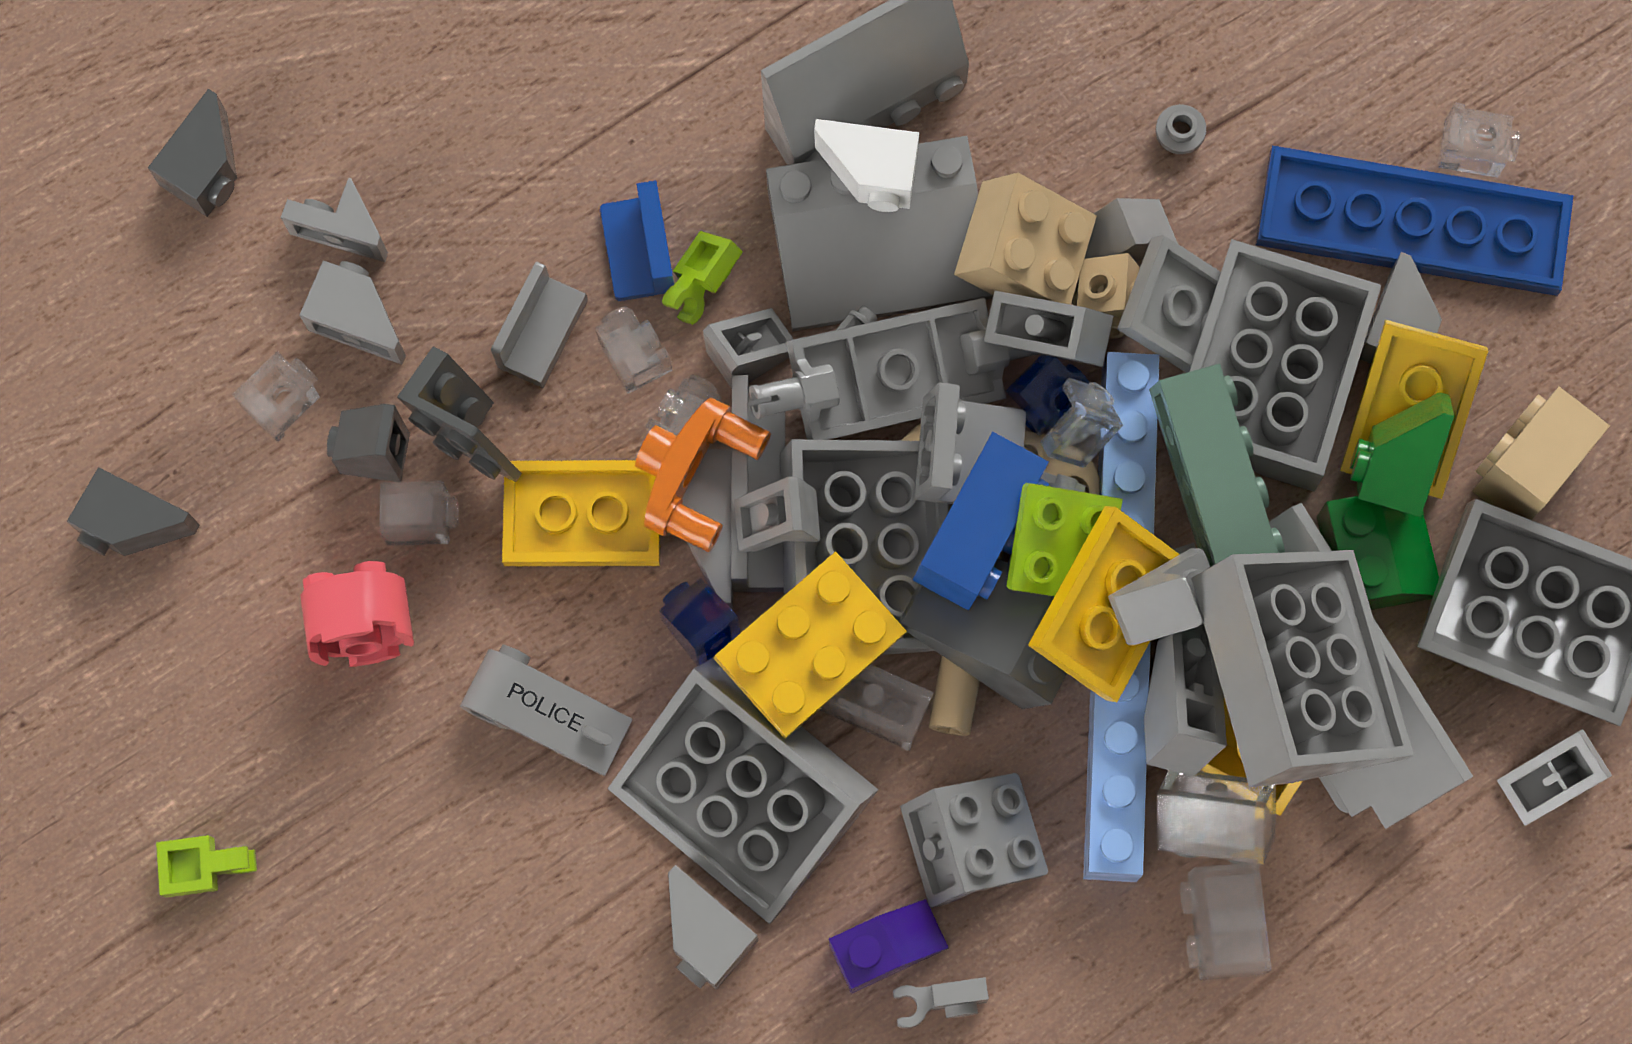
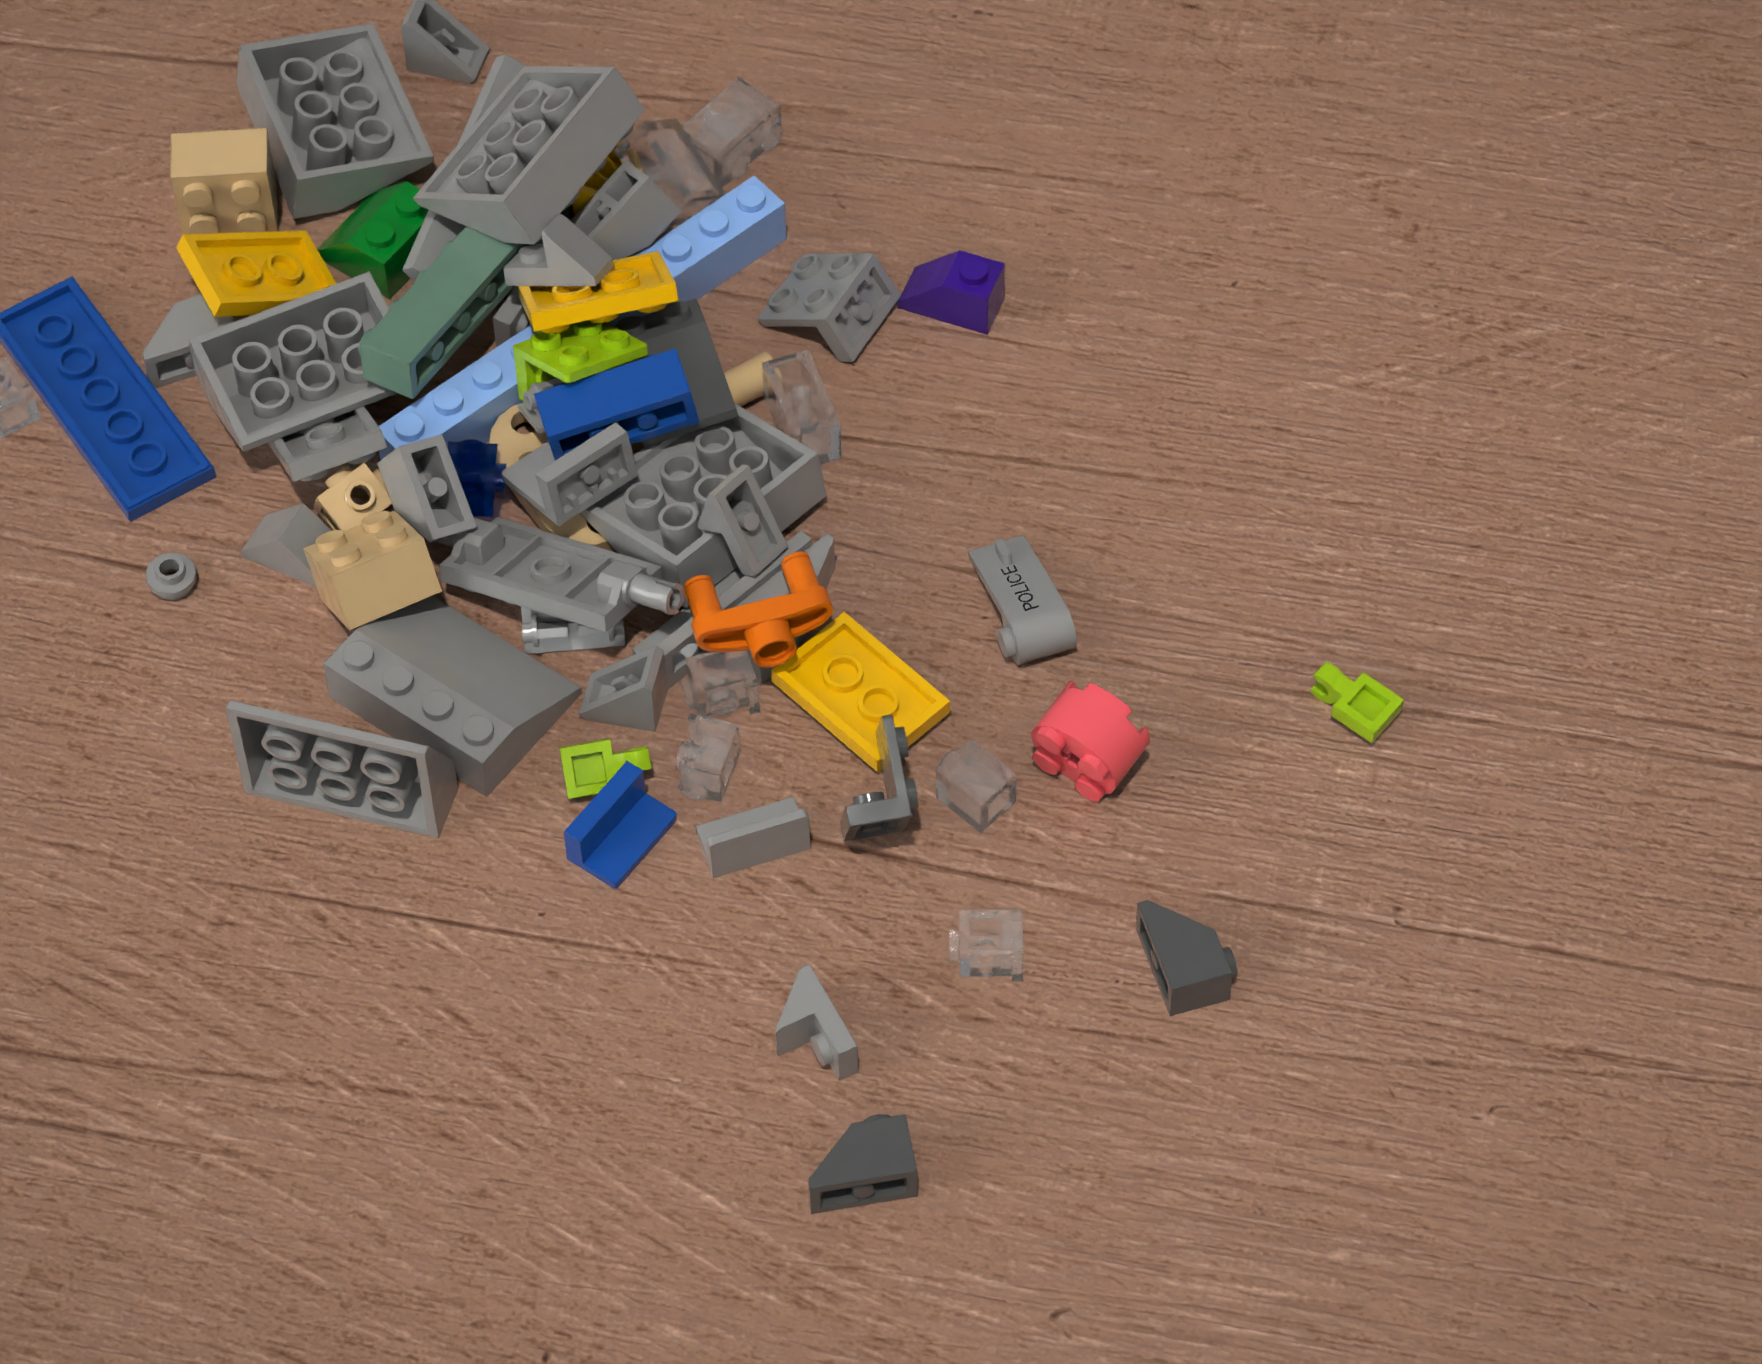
camera: 135 degrees left, 20 degrees down
(350, 311) = (874, 956): light grey slope -> none
(370, 443) = (958, 842): dark grey slope -> none
(699, 620) = (859, 541): clear blue slope -> none
(705, 932) = (1061, 387): light grey slope -> none
(740, 794) = (941, 443): light grey slope -> none
(810, 645) = (811, 440): yellow plate -> none
(870, 161) = (412, 673): white slope -> none
(956, 997) = (945, 233): light grey plate -> none
(1085, 426) = (477, 419): clear bracket -> none
(1403, 455) = (305, 230): green slope -> none

